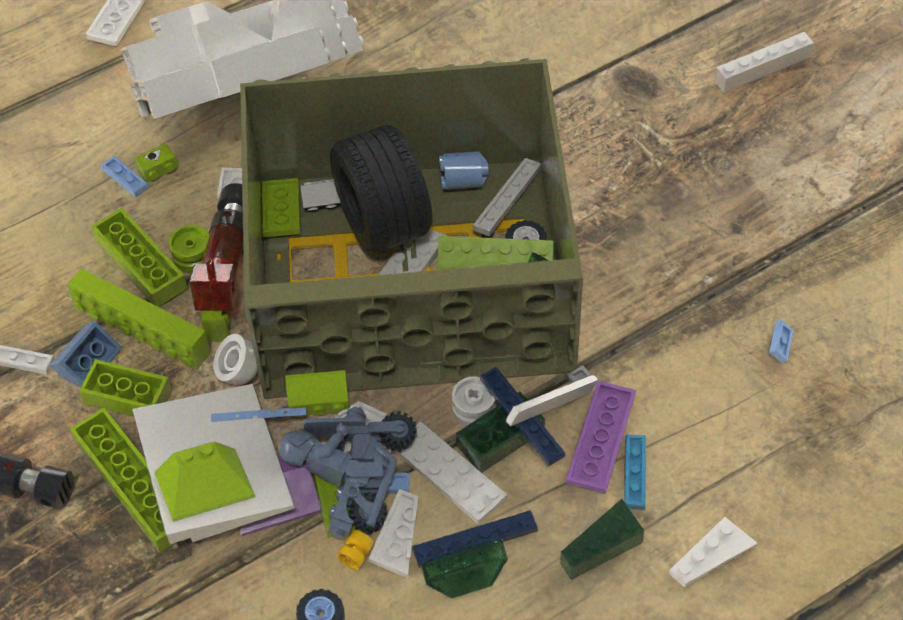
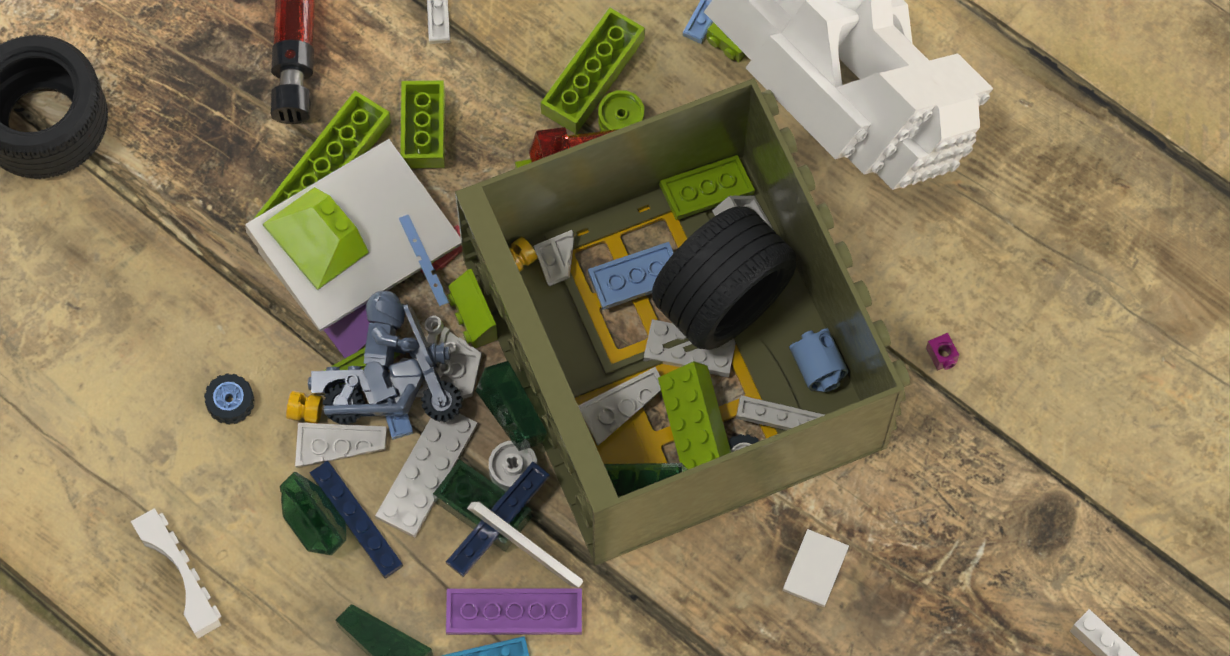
camera: 70 degrees right, 15 degrees up
(78, 356) = (461, 68): medium blue slope -> none
(139, 319) = (511, 98): lime brick -> none
(337, 259) = (629, 276): none -> light blue plate
(421, 381) = (511, 406): none -> clear green wedge
(578, 374) = (586, 570): light grey tile -> none
(628, 225) = (815, 568): none -> white tile

